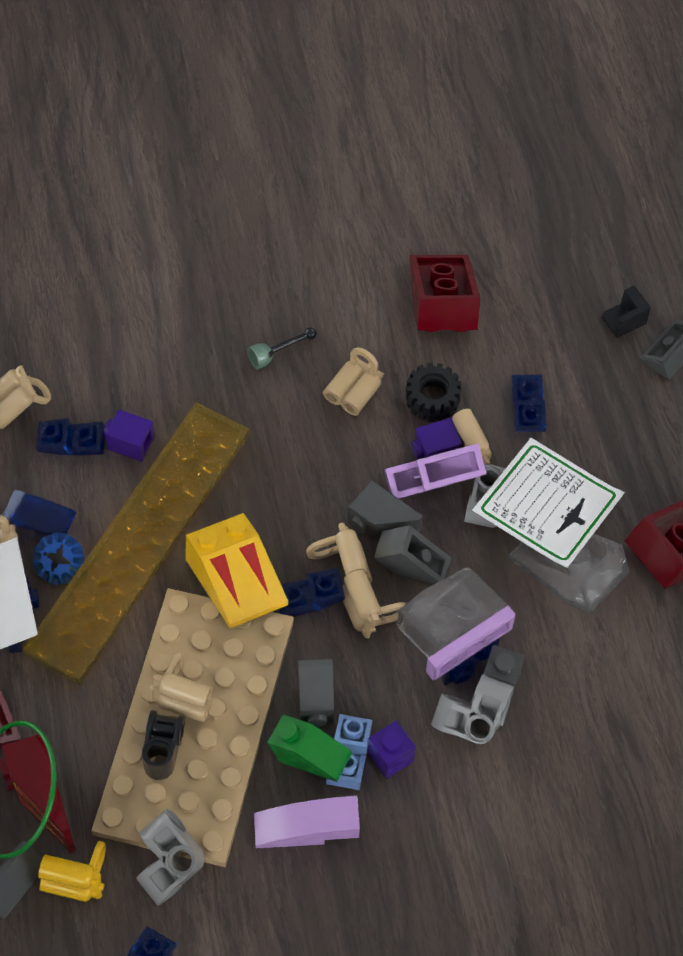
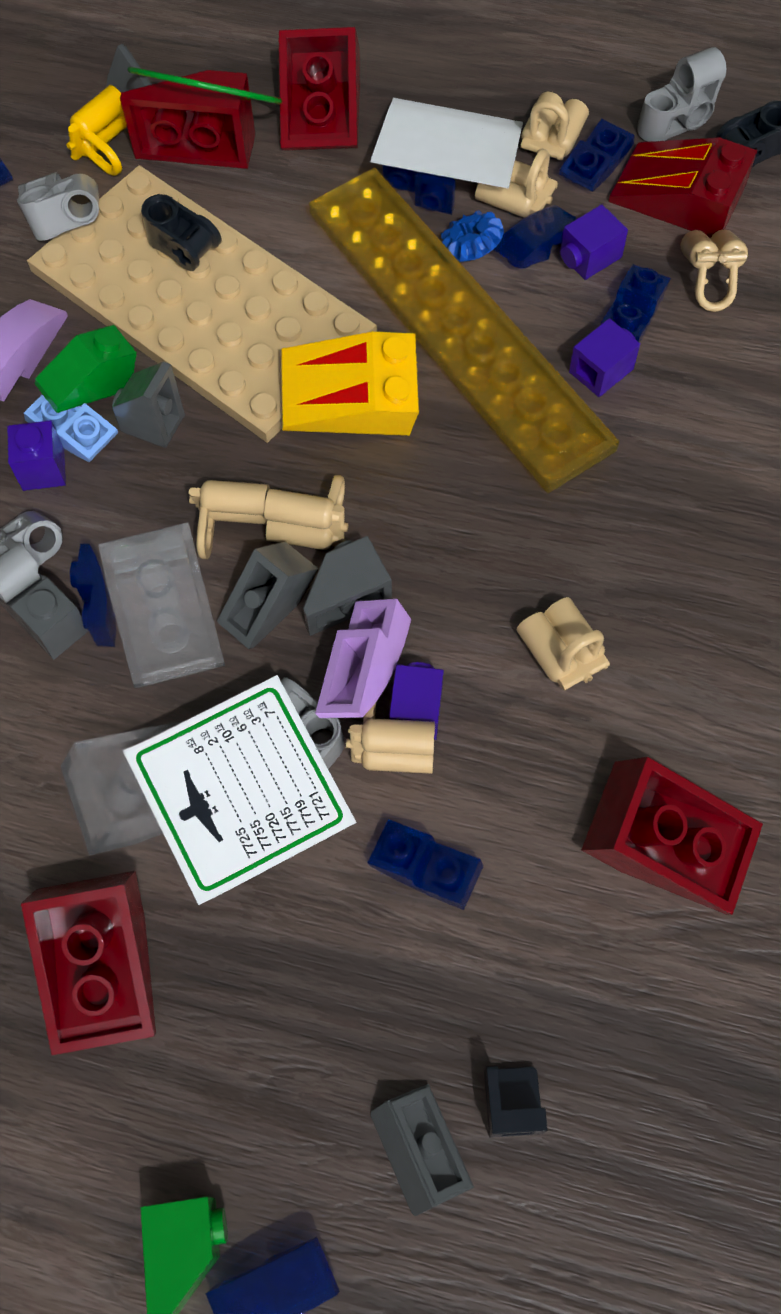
camera: 120 degrees right, 5 degrees up
(30, 476) = (593, 242): none -> dark purple brick
(181, 694) = (219, 262): tan piece -> none
(262, 355) = (664, 551): hinge -> none
(315, 593) = (286, 459): clear blue slope -> none
(437, 377) = (510, 712): black tyre -> none
(470, 643) = (86, 573): lavender tile -> none

